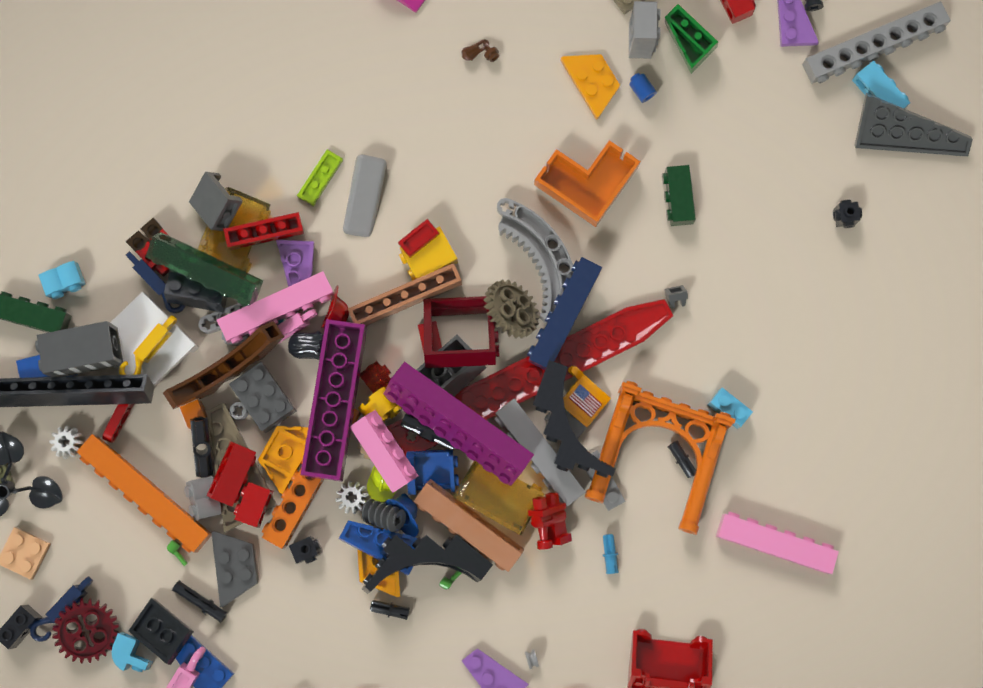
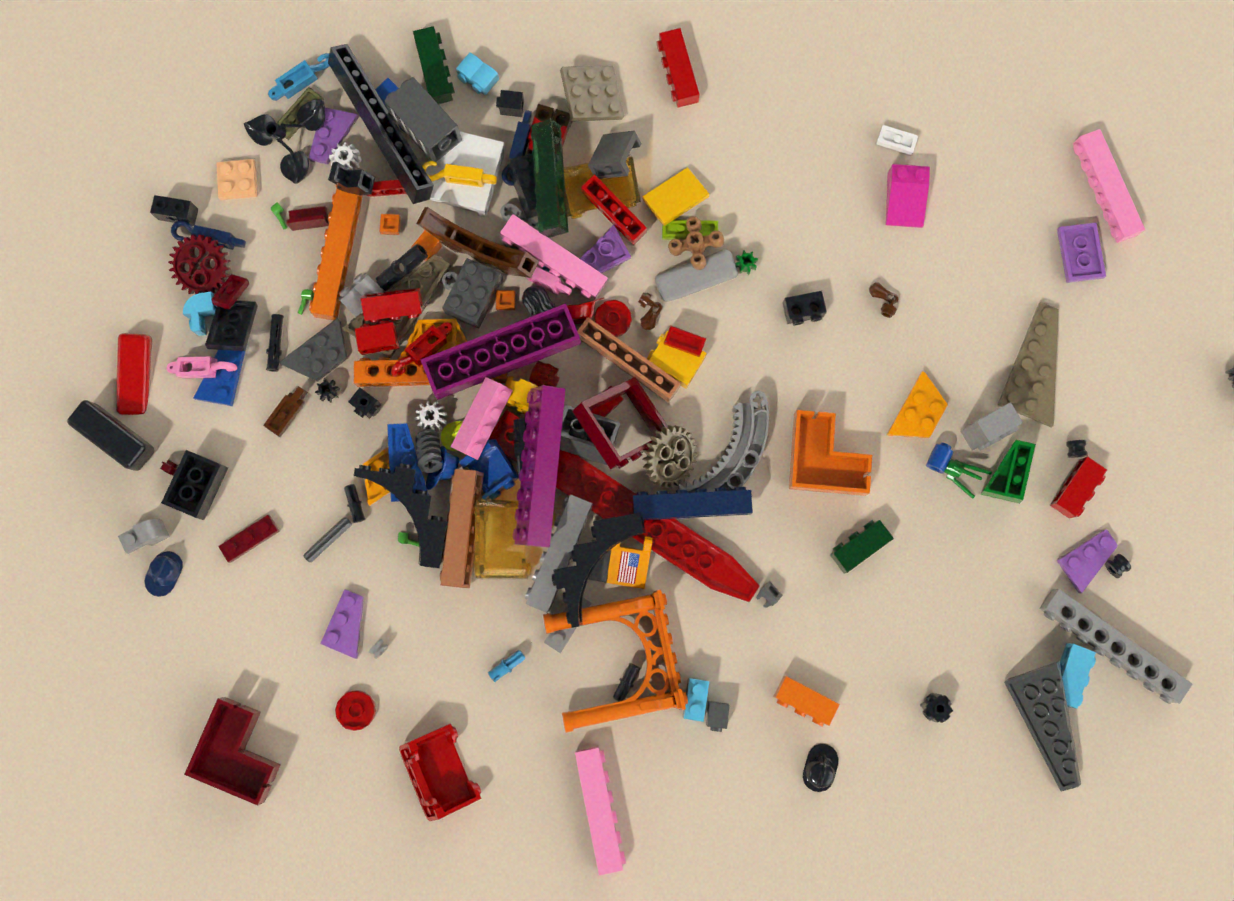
camera: 60 degrees right, 0 degrees up
(35, 443) = (334, 129): none -> medium lavender wing
(75, 531) = (277, 210): none -> bright green hand
(95, 446) = (351, 181): none -> black brick
(101, 507) = (308, 218): none -> dark red panel
(108, 266) = (510, 103): none -> black brick
(128, 615) = (230, 291): none -> dark red plate
(144, 189) = (591, 93): none -> dark tan plate
(153, 436) = (390, 224): none -> orange plate
(168, 102) = (678, 67): none -> red brick
(267, 575) = (325, 395): none -> black gear
(270, 626) = (285, 412): none -> reddish brown hinge
(283, 172) = (675, 196): none -> yellow tile
(285, 372) = (505, 299): none -> orange tile
(288, 470) = (421, 348): none -> red piece
(331, 176) = (696, 243): none -> medium nougat gear
(358, 287) = (613, 317): none -> red tile
(378, 141) = (749, 257): none -> green gear
(379, 258) = (648, 321): none -> reddish brown piece
(408, 652) = (327, 539): none -> dark grey axle
(443, 121) = (803, 303): none -> black brick
(549, 518) = (503, 595): red hips -> none
(659, 79) = (956, 468): none -> green plant
(753, 398) = (717, 716): none -> dark grey brick
(782, 317) = (806, 701): none -> orange brick
(843, 338) = (820, 767): none -> black piece

